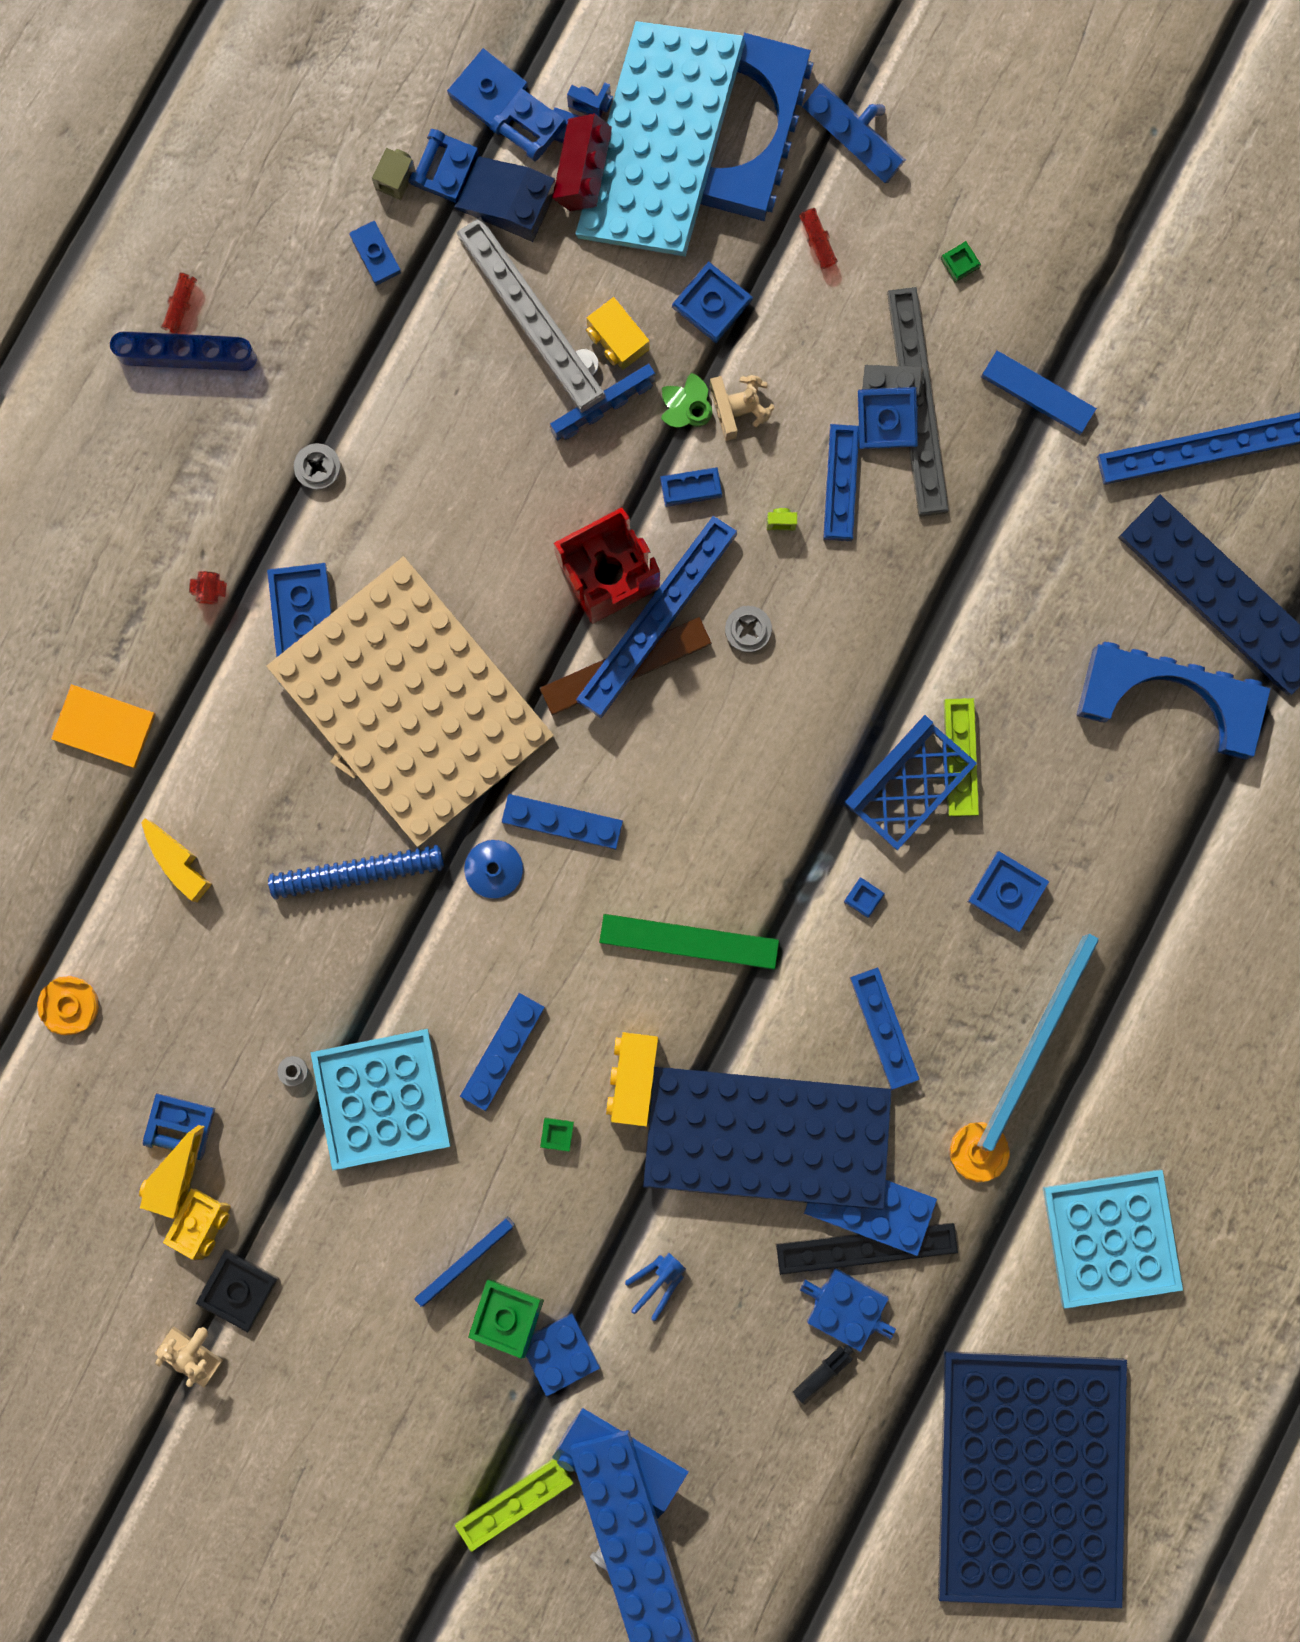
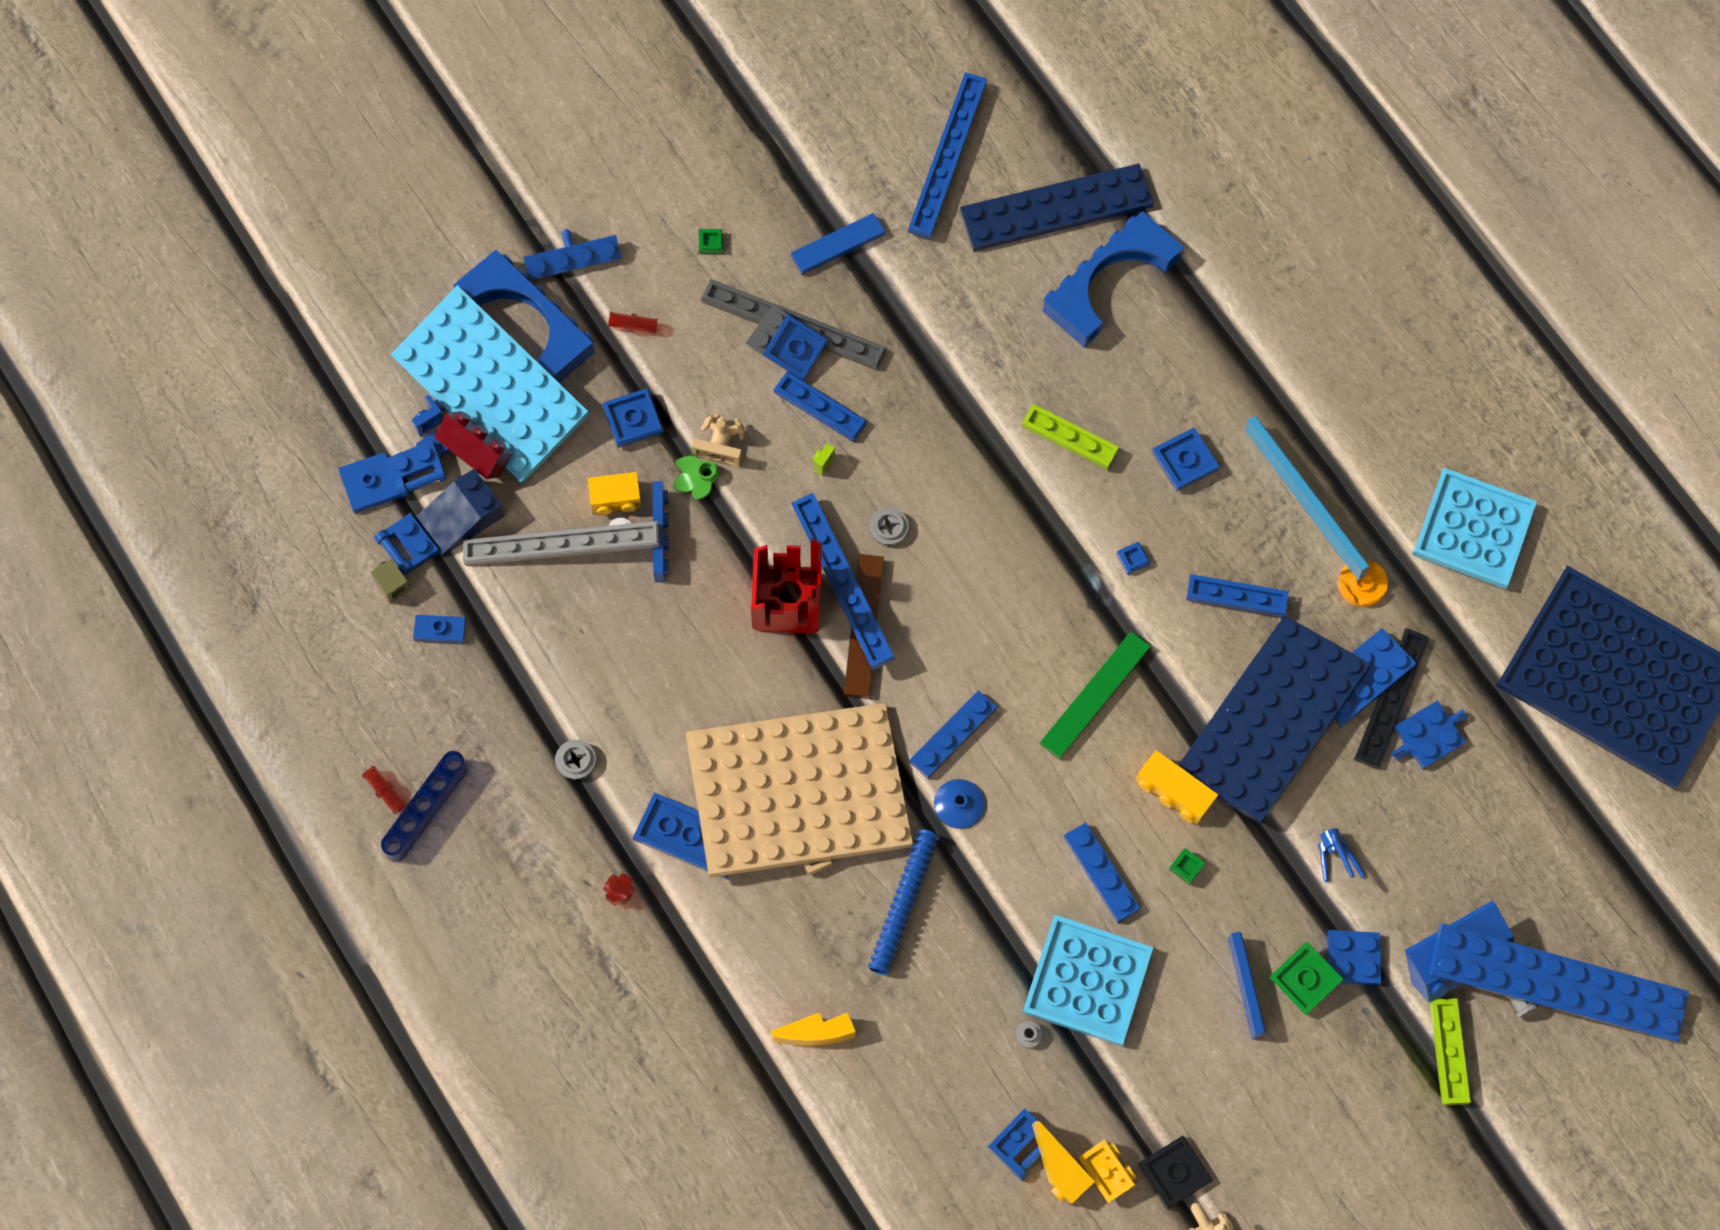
camera: 60 degrees left, 15 degrees down
(68, 1005) = (878, 1180): light orange tile -> none
(103, 726) = (675, 1030): light orange tile -> none
(691, 487) = (759, 507): blue plate -> none
(823, 1374) = (1468, 776): black piece -> none
(892, 764) = (1048, 485): blue fence -> none

